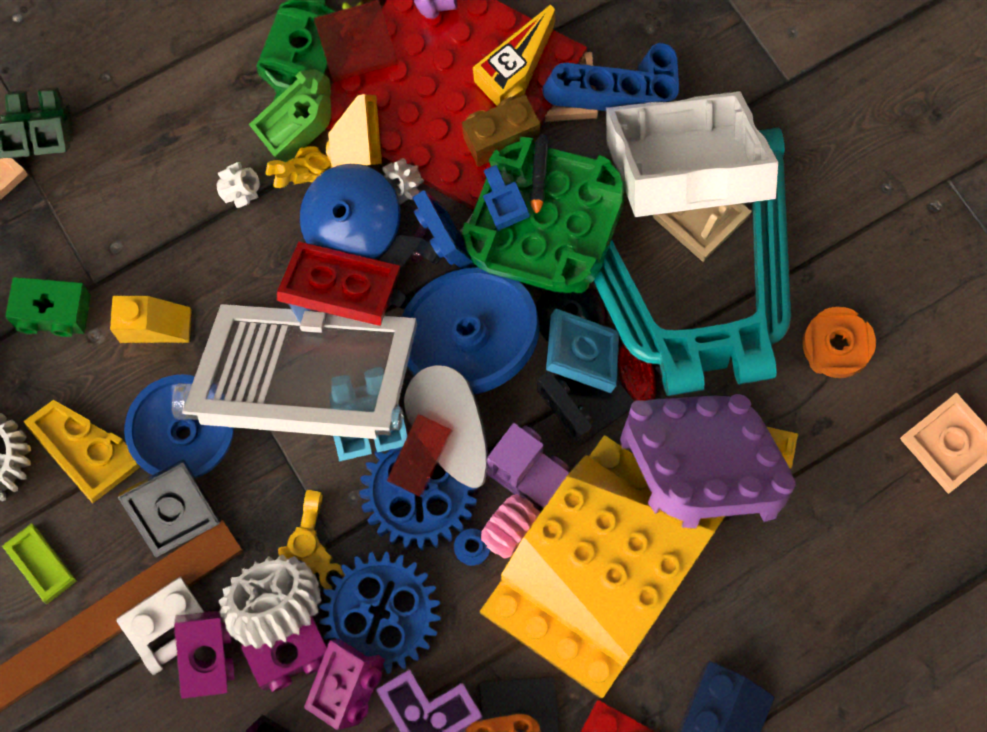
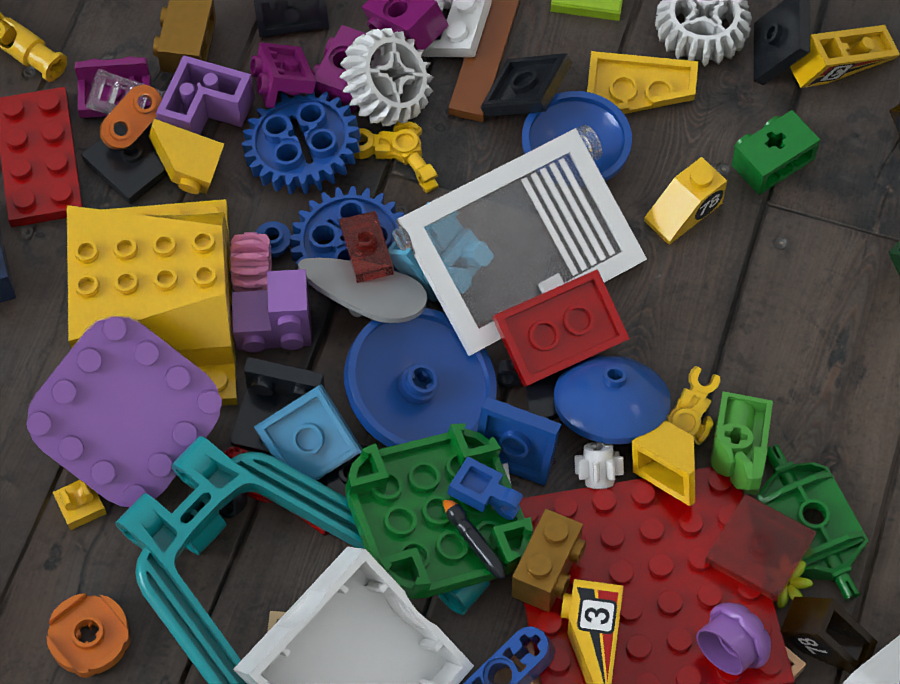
camera: 140 degrees right, 10 degrees down
(238, 185) = (731, 353): white gear -> none
(482, 665) = (186, 156): none -> yellow slope

